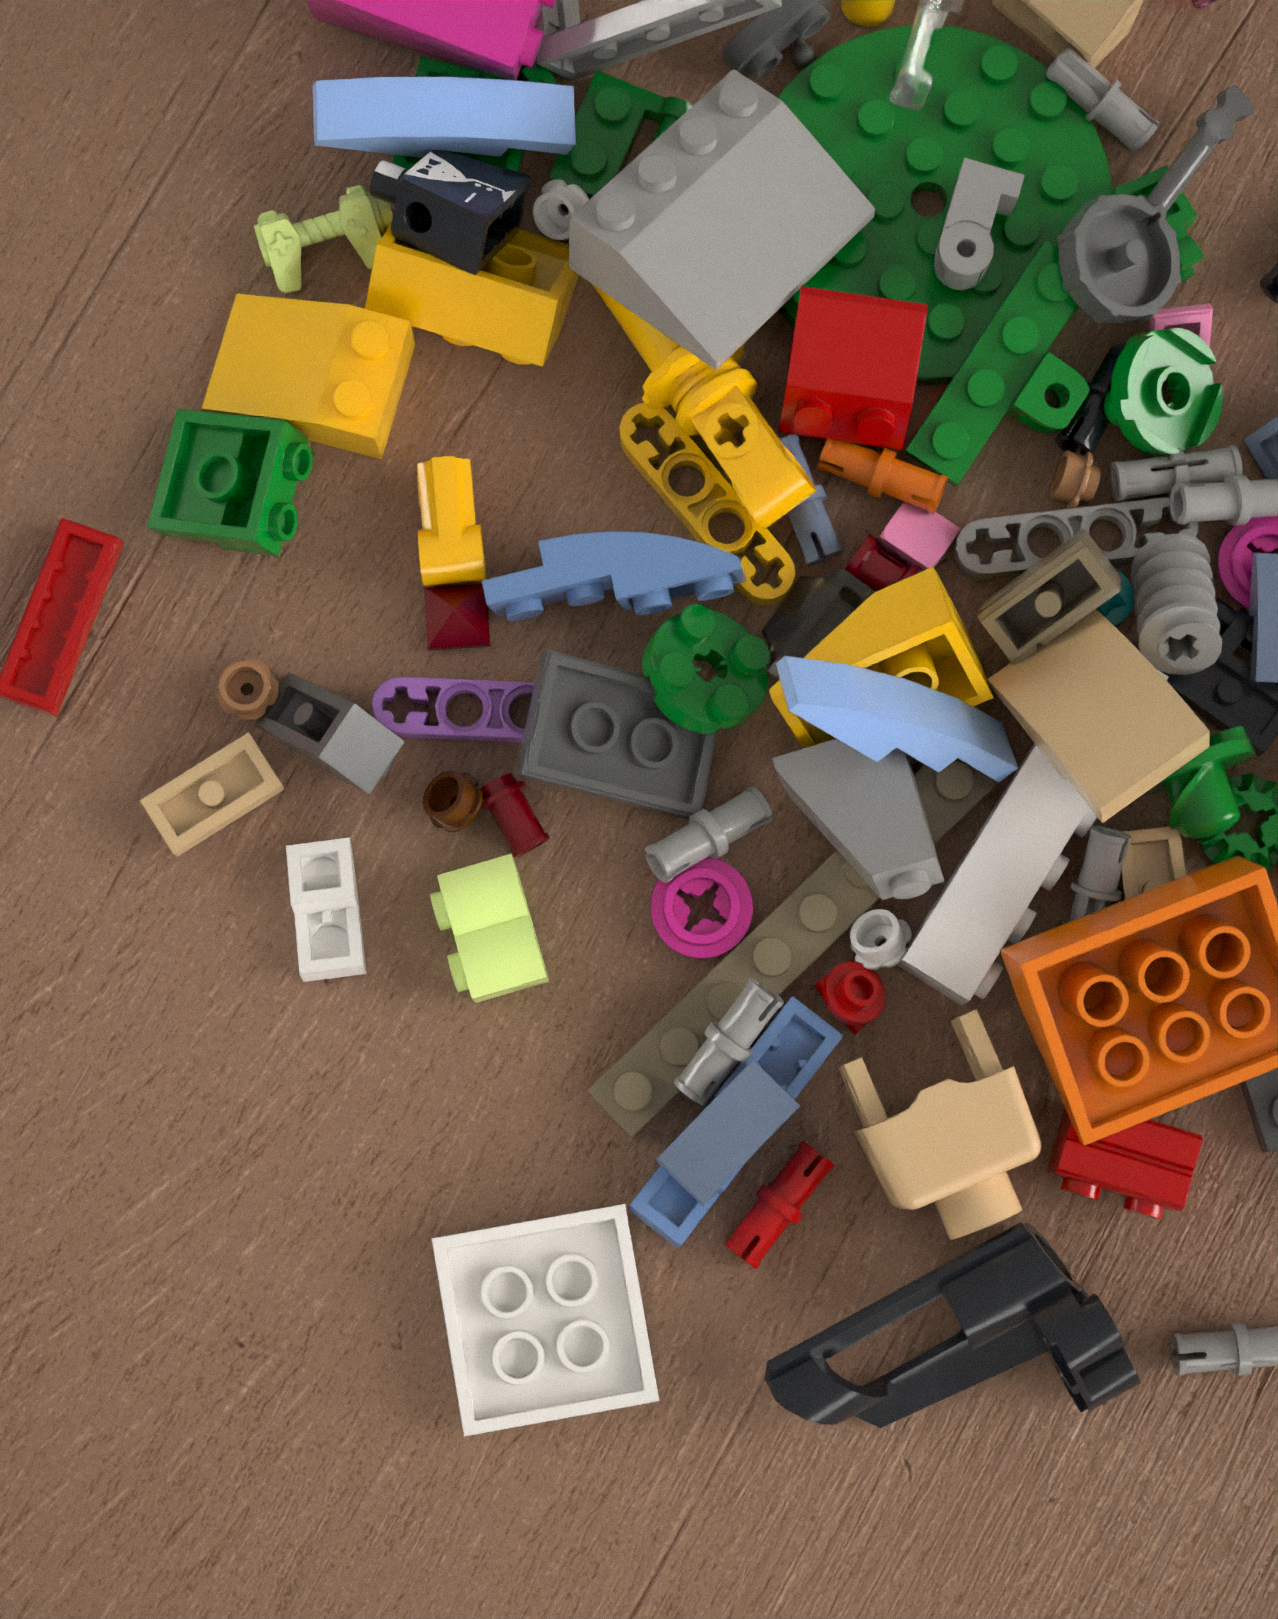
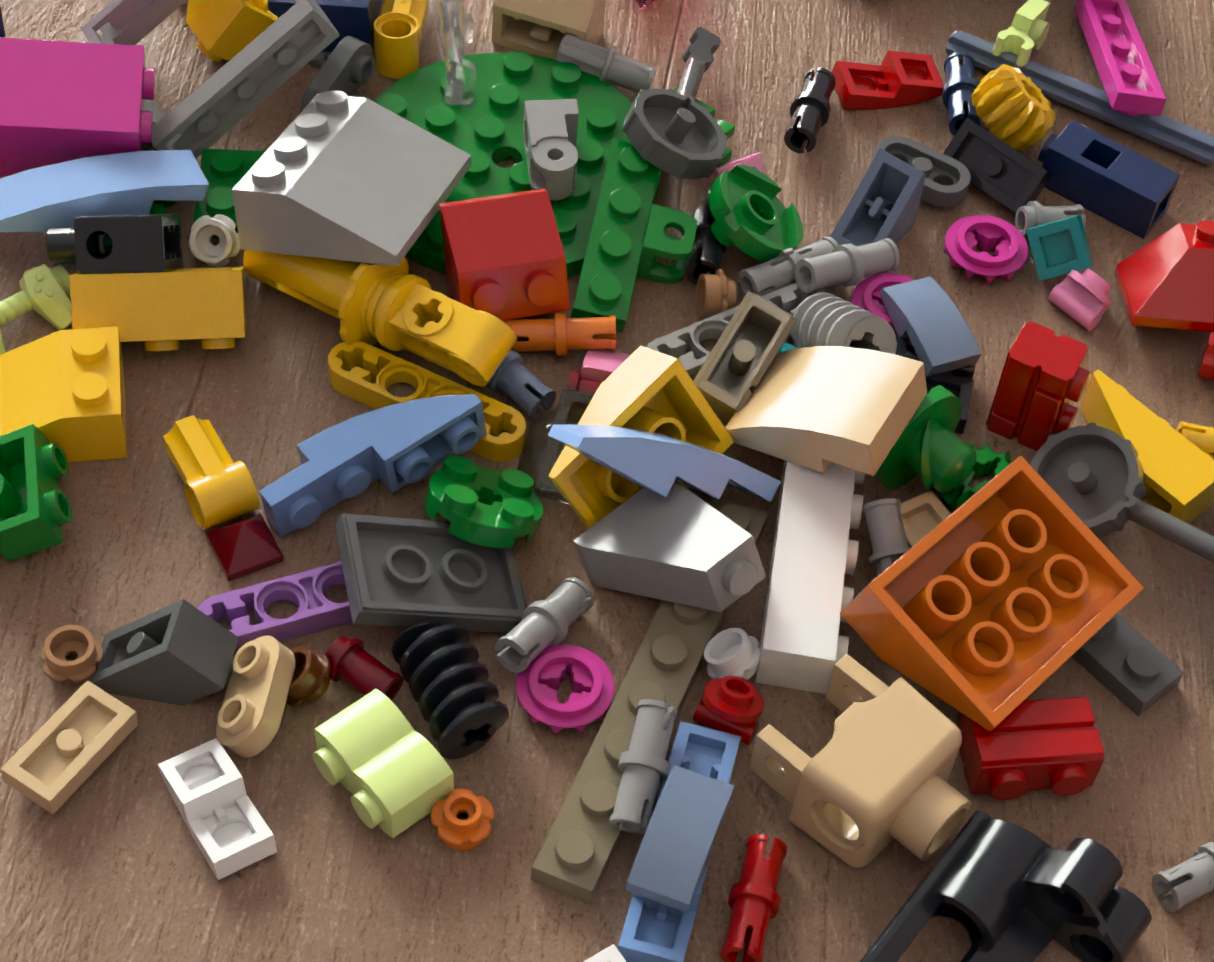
camera: 25 degrees left, 30 degrees down
(400, 808) = (255, 696): none -> tan plate
(549, 1028) = (462, 833): none -> orange plate
(586, 872) = (450, 686): none -> black piece

